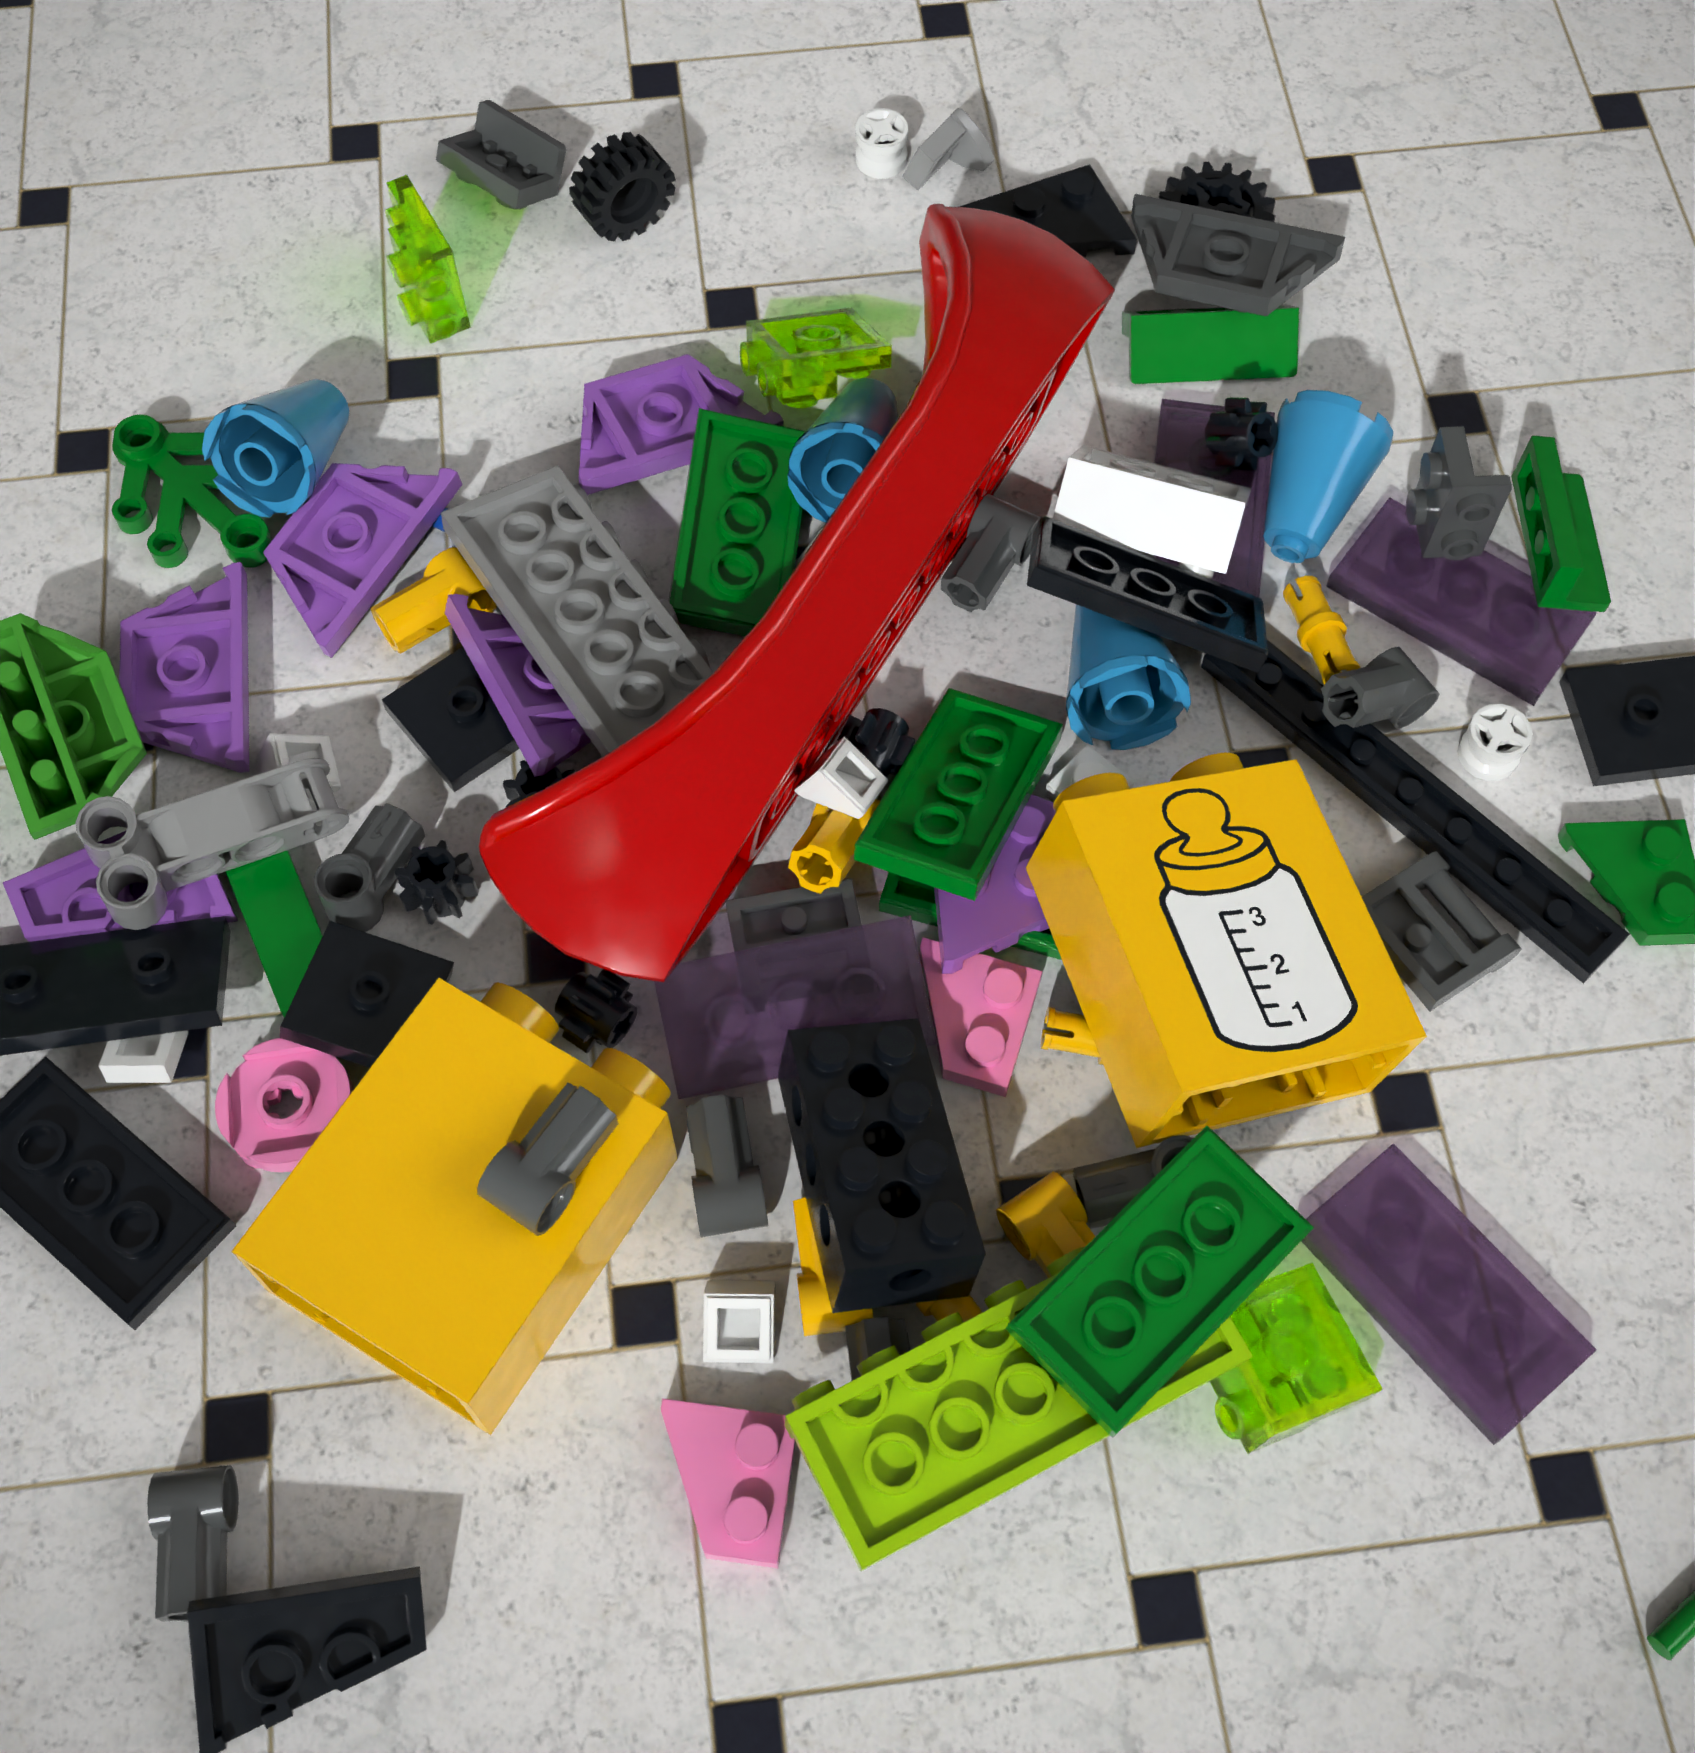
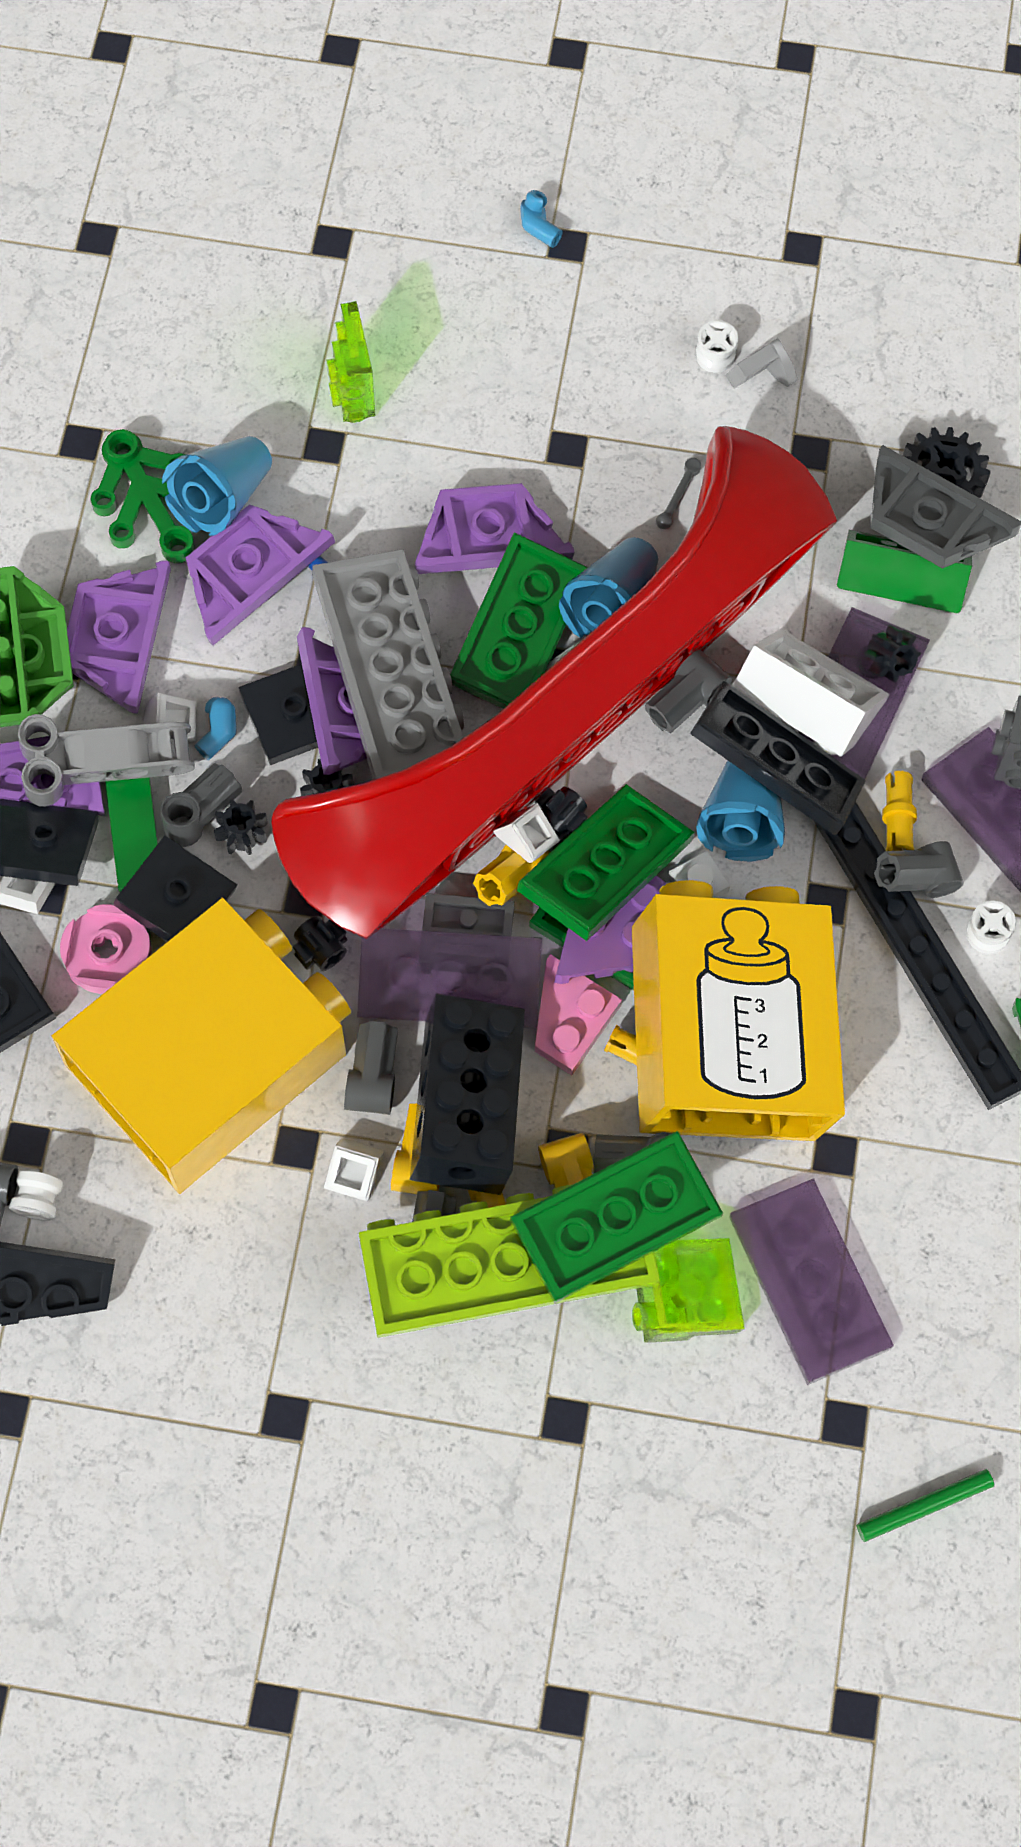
camera: 15 degrees right, 5 degrees up
(271, 1503) = (36, 1195): none -> white wheel
(374, 760) = (222, 727): none -> dark azure arm
(420, 608) = (280, 628): yellow piece -> none
(505, 157) = (435, 289): dark grey bracket -> none
(538, 1175) = (248, 1042): dark grey piece -> none
(605, 57) = (534, 219): none -> dark azure arm
(620, 164) = (512, 338): black tyre -> none
(734, 1477) = (321, 1263): bright pink wing -> none
(805, 352) = (608, 505): clear neon green plate -> none
(897, 290) = (691, 468): none -> dark grey hinge
(1071, 208) = (822, 437): black wing -> none
(1319, 470) = (938, 697): dark azure cone -> none
(1423, 944) = (883, 1048): dark grey plate -> none

